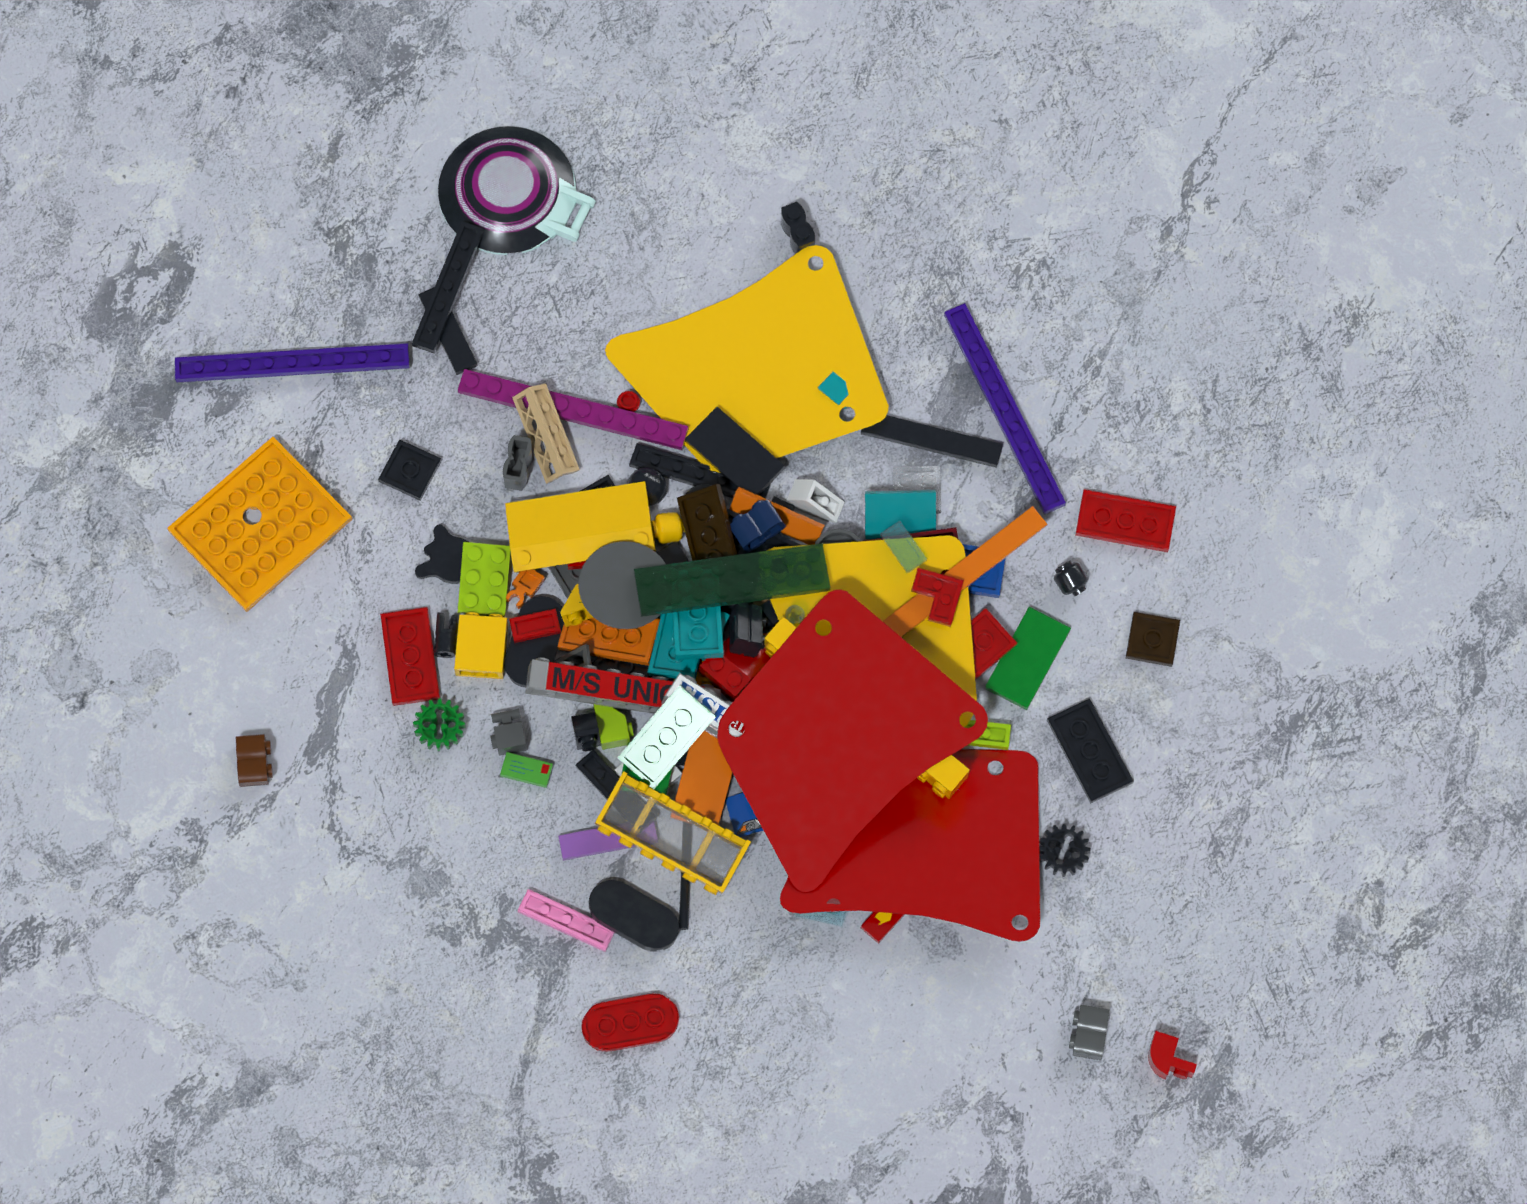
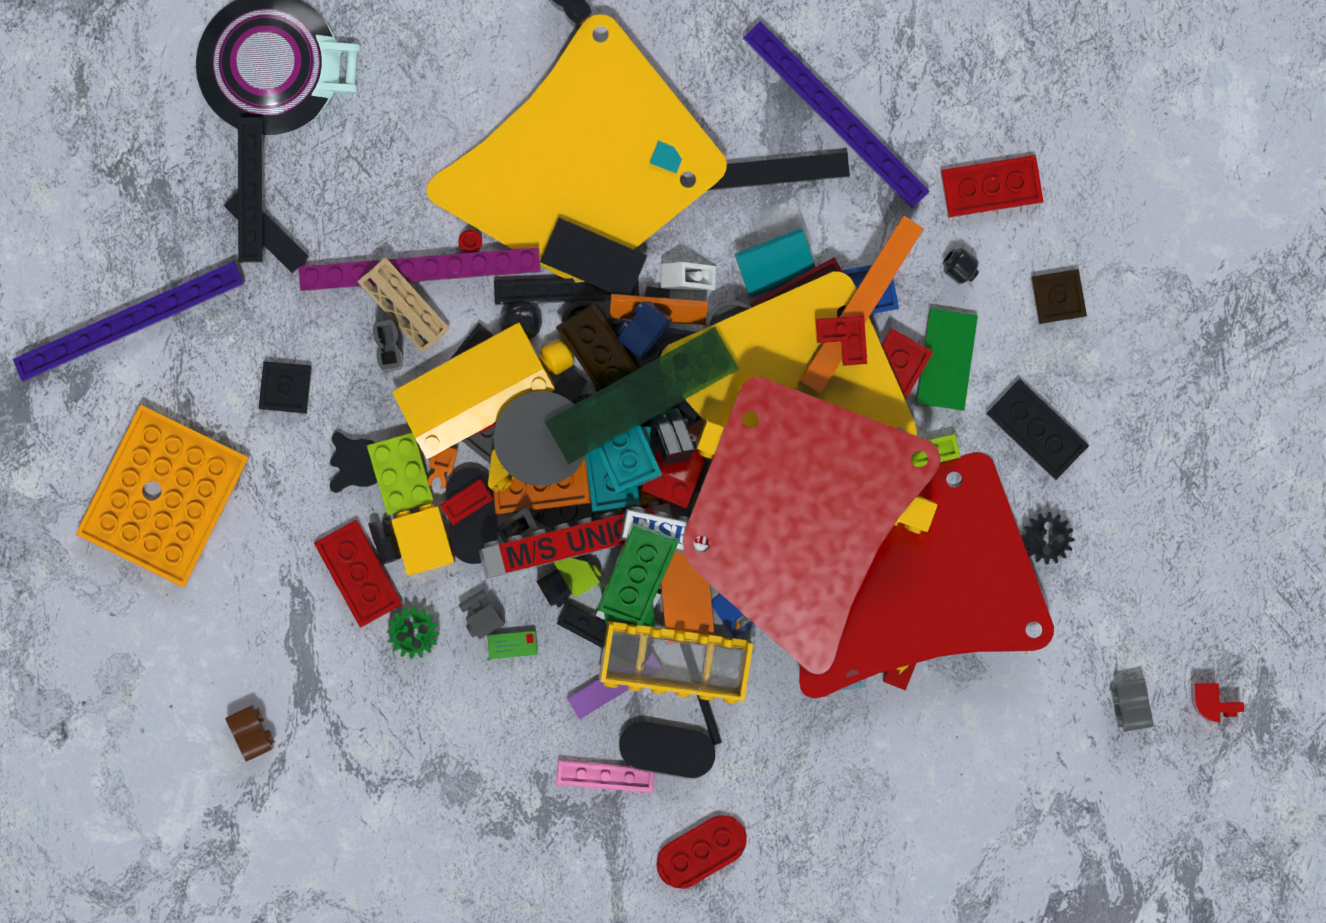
camera: 20 degrees left, 15 degrees up
(795, 614) = (715, 409): clear light blue piece -> none
(903, 547) = (793, 300): clear light blue tile -> none

